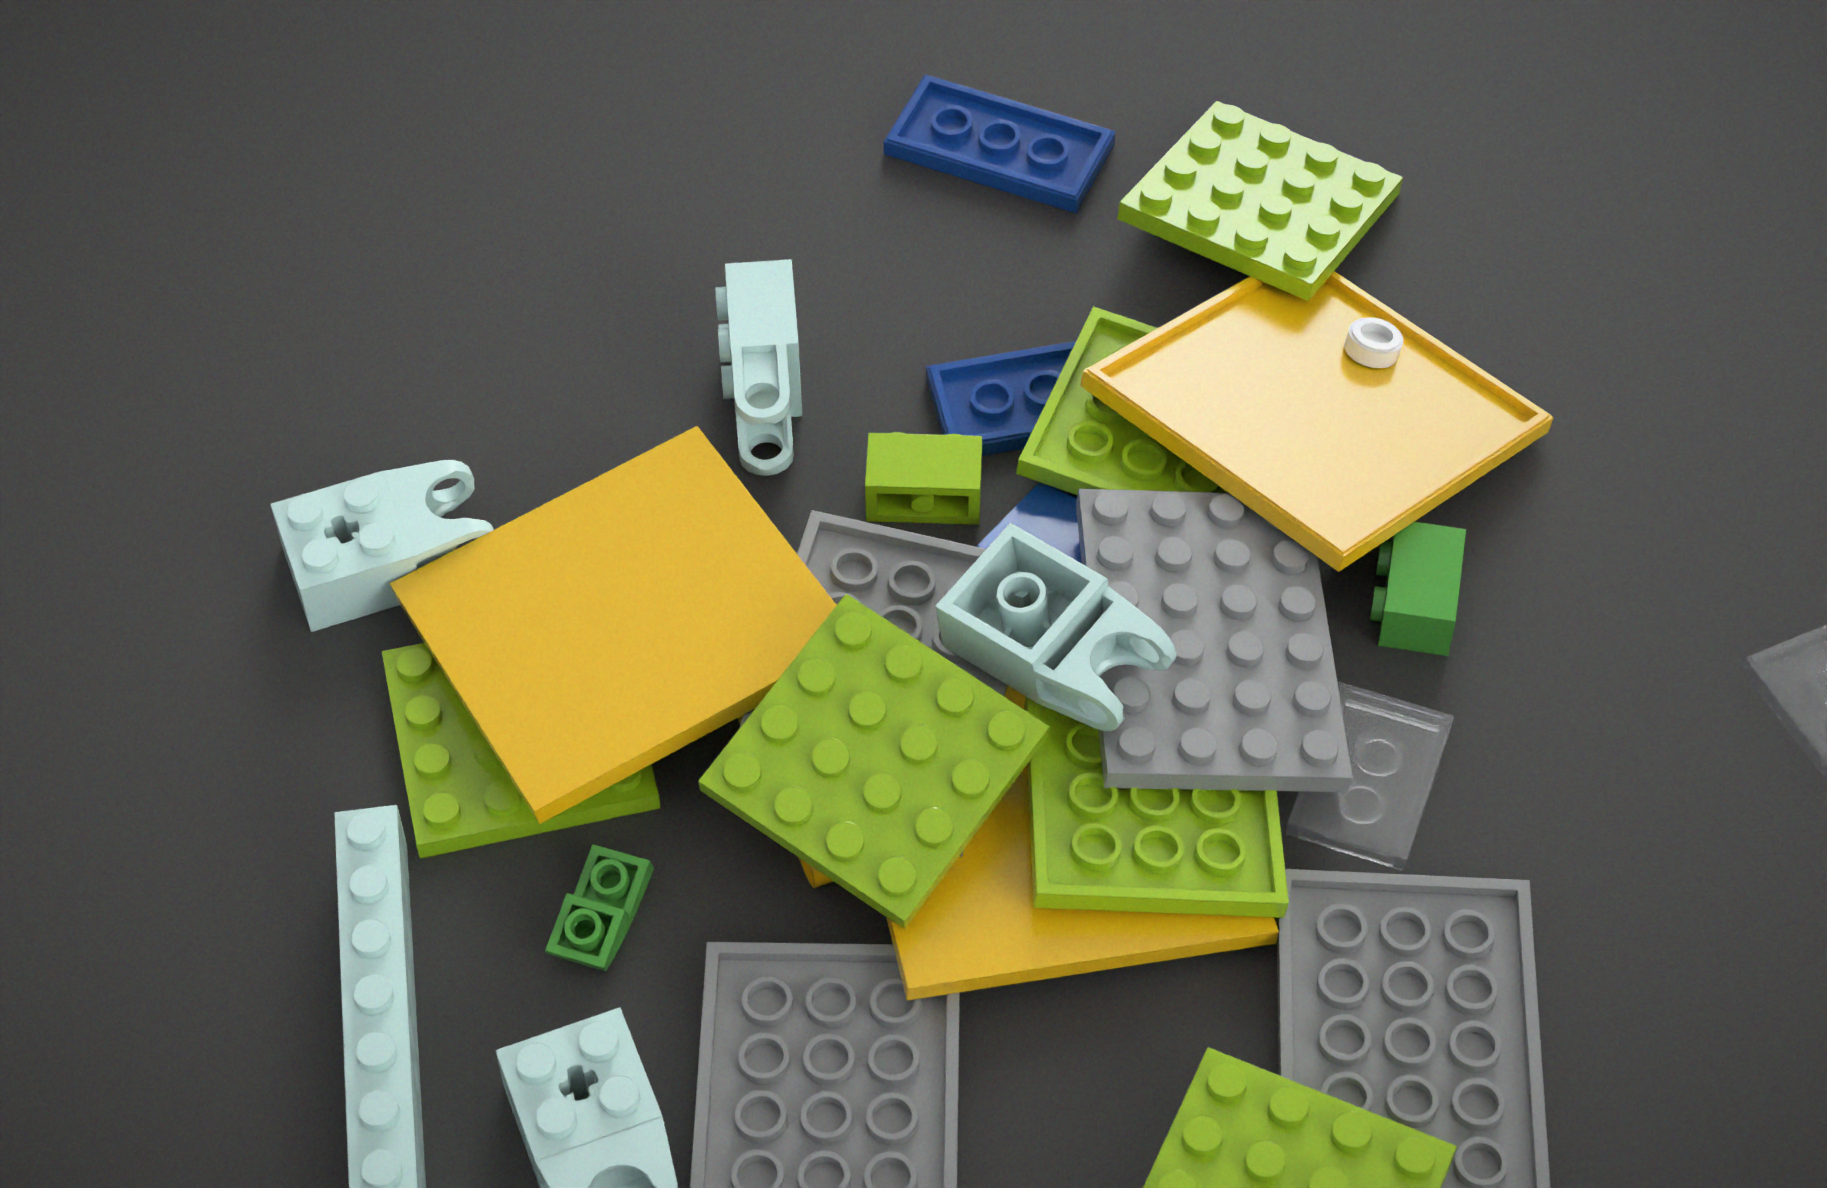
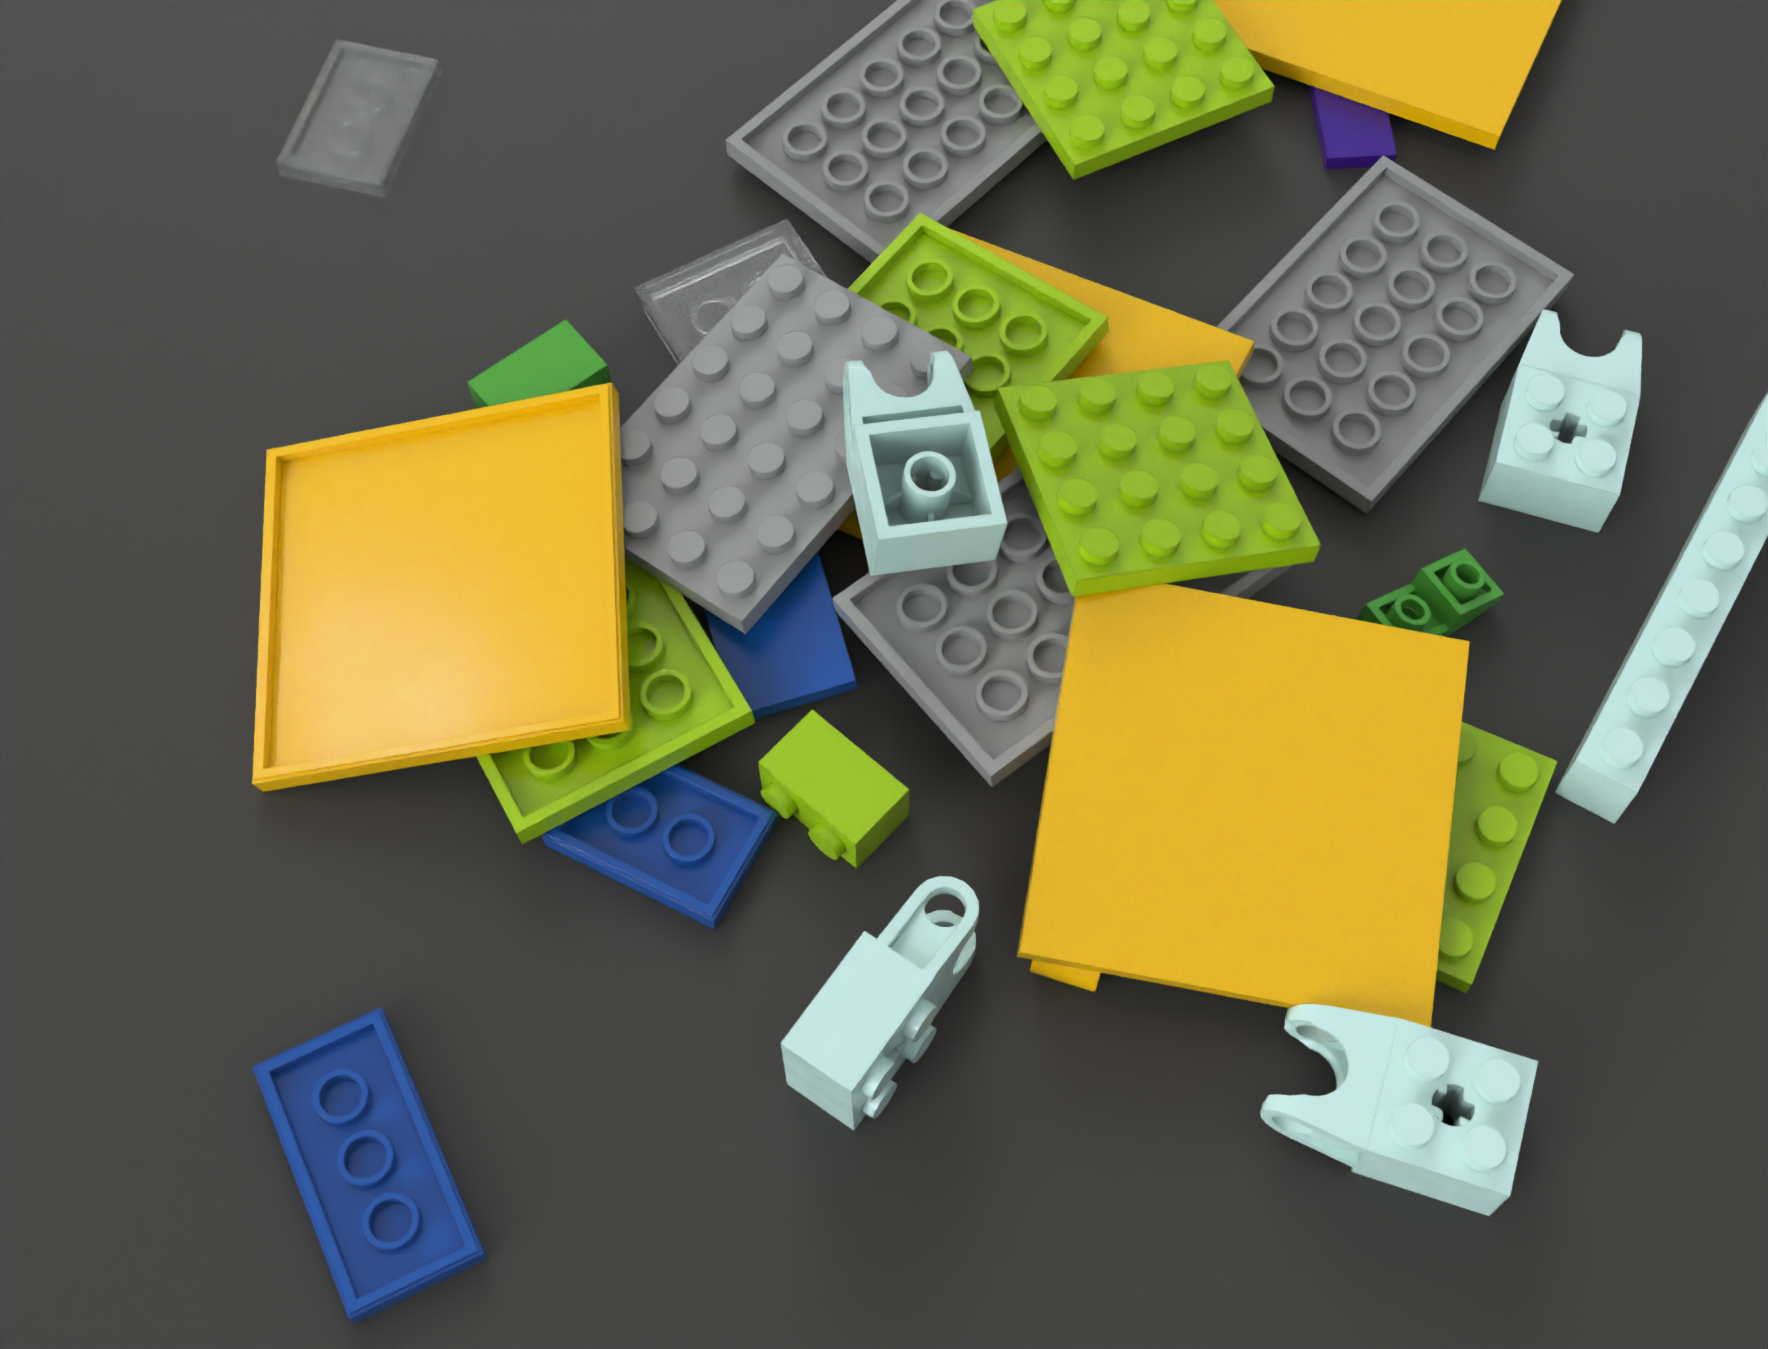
camera: 140 degrees left, 10 degrees up
(1260, 199) = (225, 858): plate -> none
(1373, 342) = (323, 612): white tile -> none

